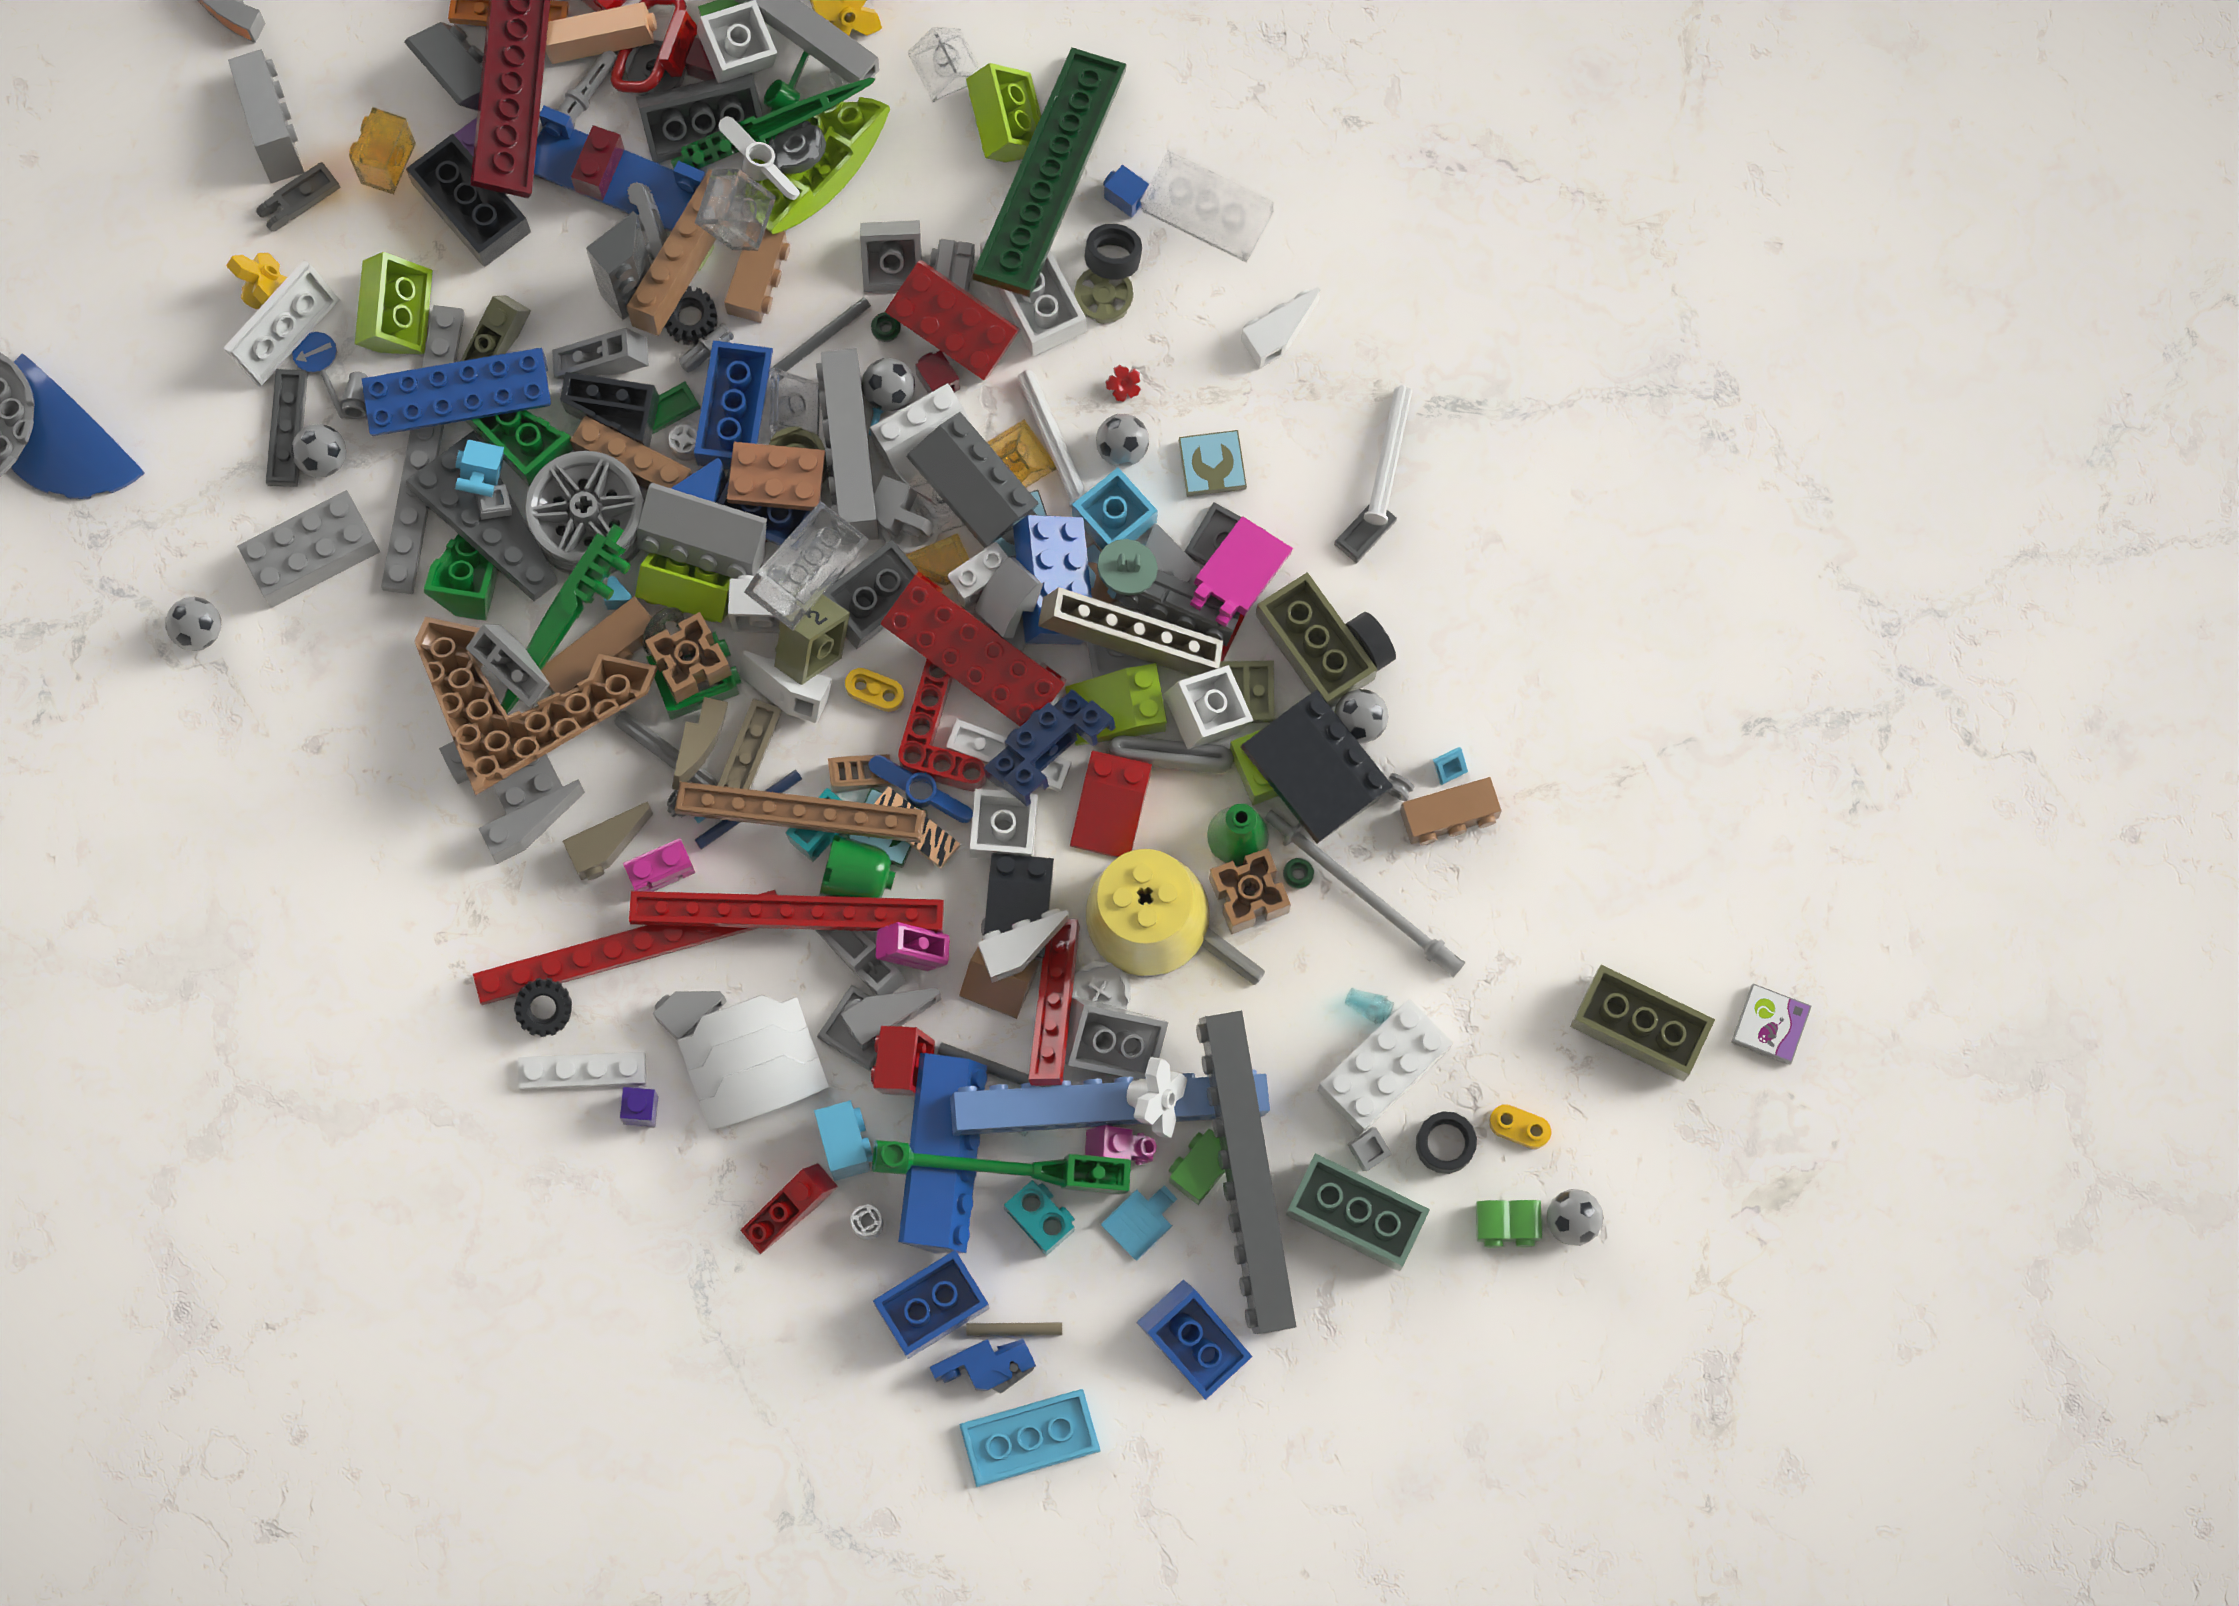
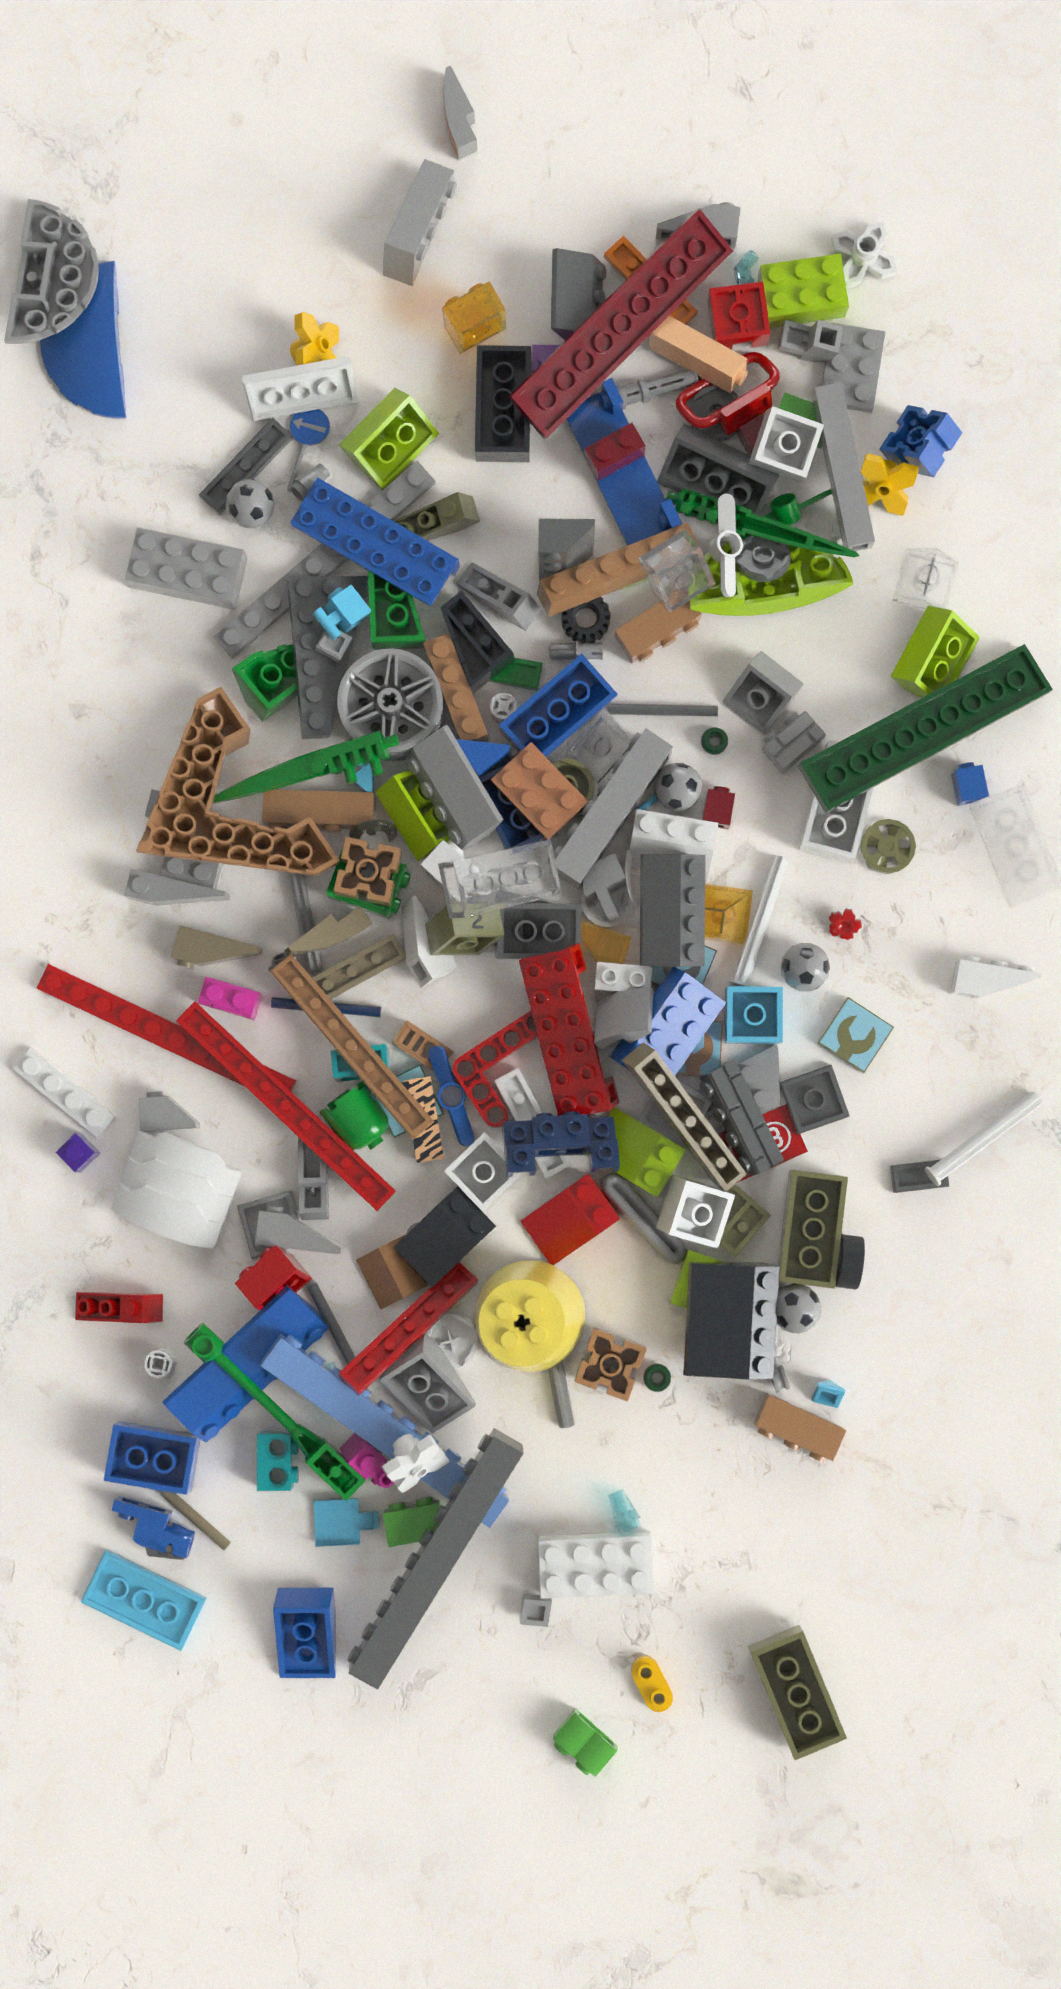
camera: 50 degrees right, 10 degrees up
(193, 623) = (65, 557): light grey piece -> none
(298, 196) = (393, 301): dark grey hinge -> none
(509, 662) = (244, 771): light grey slope -> none
(548, 988) = (59, 1036): black tyre -> none
(648, 217) = (615, 523): light grey hinge -> none
(842, 1140) = (189, 1296): medium azure brick -> none
(876, 688) = (481, 997): yellow plate -> none
(912, 946) = (348, 1204): dark pink brick -> none
(952, 320) = (761, 780): red brick -> none
(1013, 950) = (411, 1270): white slope -> none
(1113, 267) = (934, 812): black tyre -> none
(1127, 567) = (724, 1066): sand green piece -> none
(1237, 833) = (637, 1301): green cone -> none
(1240, 569) = (804, 1133): dark pink tile -> none
(1357, 1212) = (487, 1648): sand green brick -> none
(1433, 948) = (701, 1511): light grey bar -> none
(1464, 1127) = (591, 1673): black tyre -> none
(1574, 1217) = (630, 1782): light grey piece -> none
(1771, 1024) = (887, 1767): tile -> none

